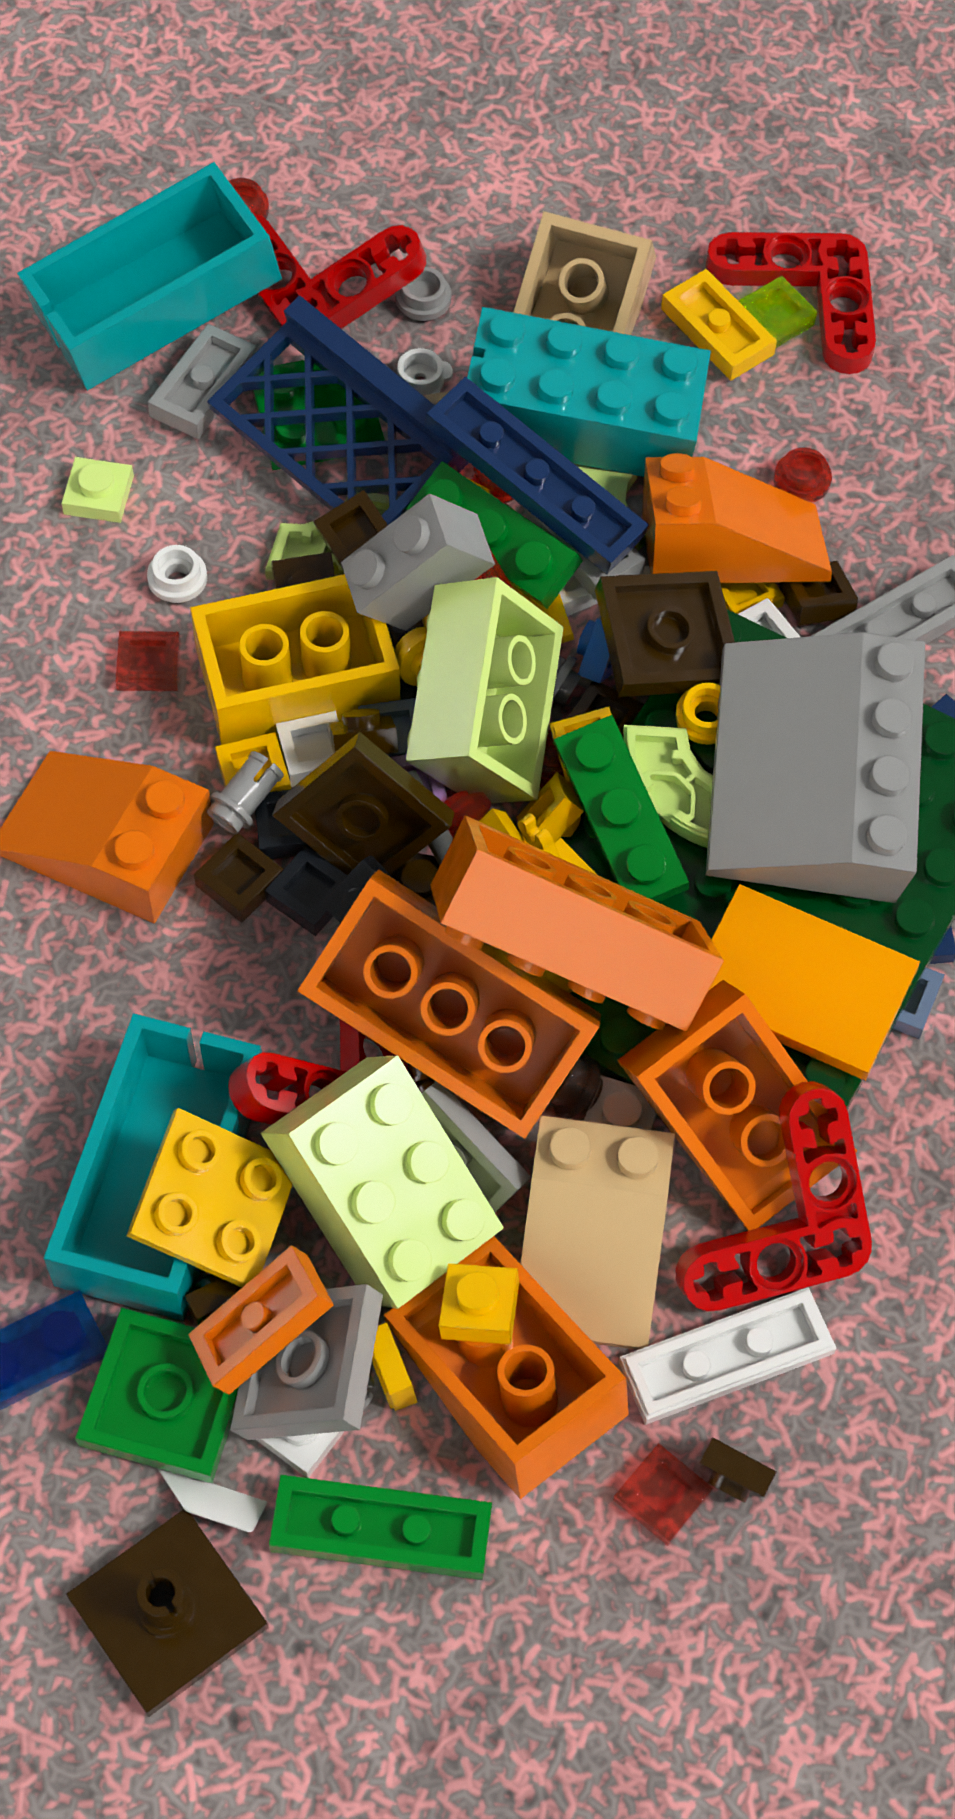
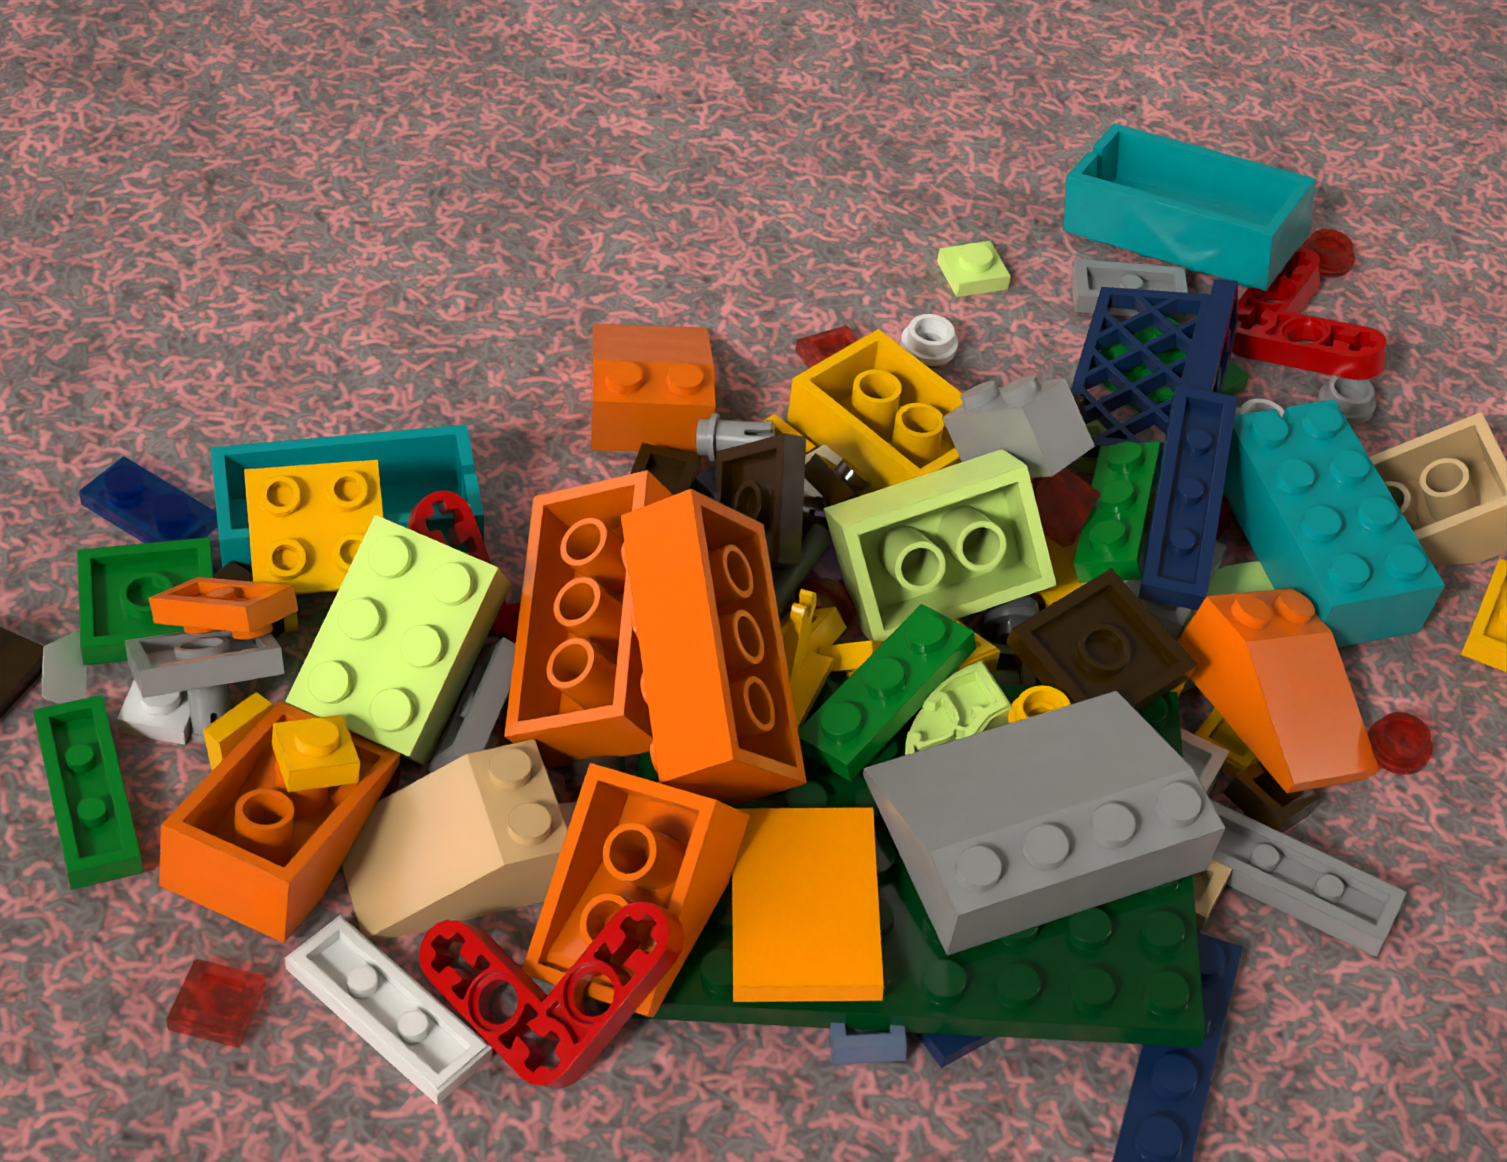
camera: 60 degrees right, 15 degrees down
(736, 1472) = (262, 1044): dark brown plate -> none

